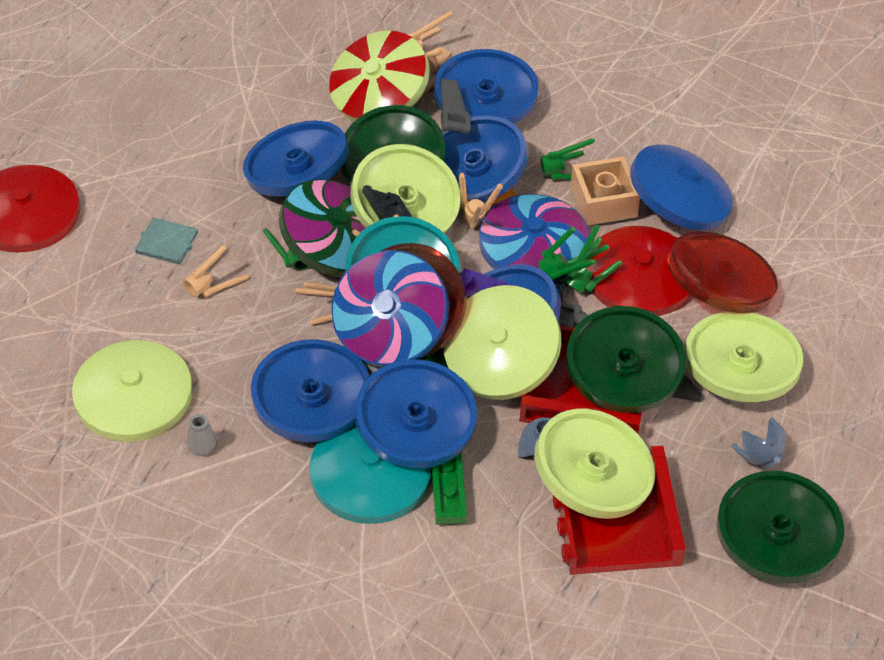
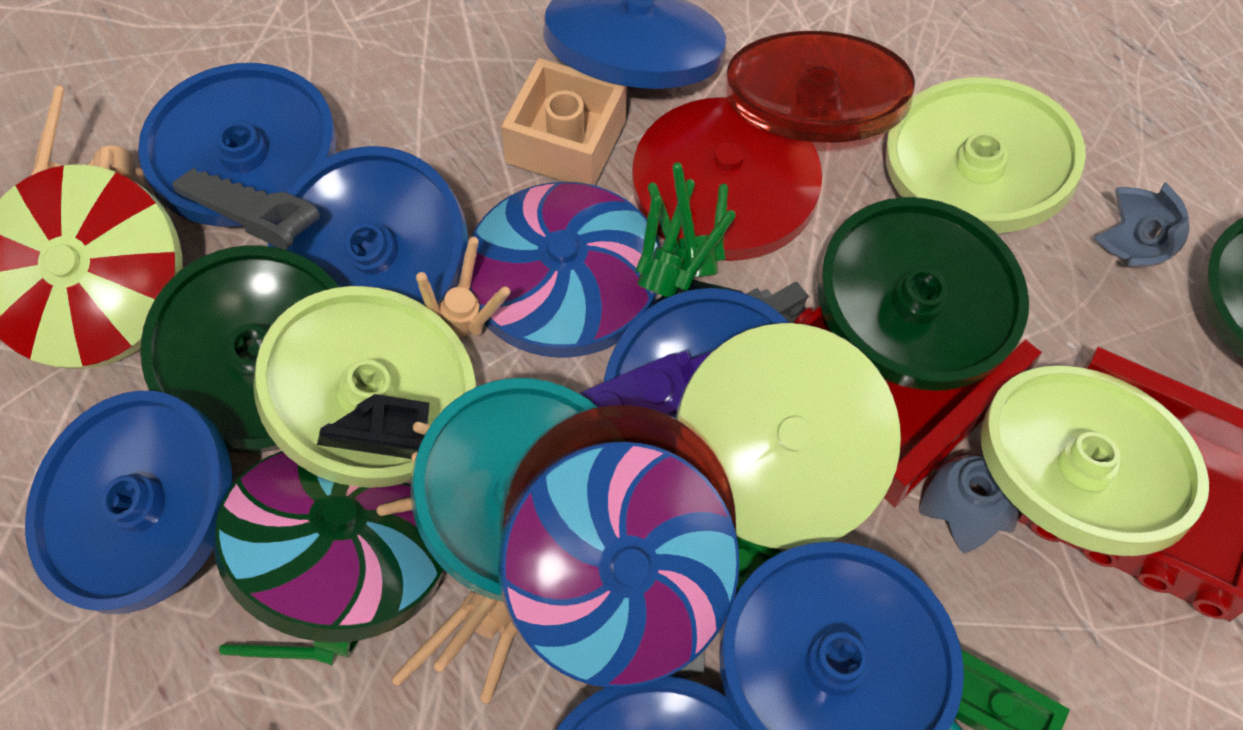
camera: 55 degrees left, 10 degrees up
(554, 163) = (451, 150): green plant -> none

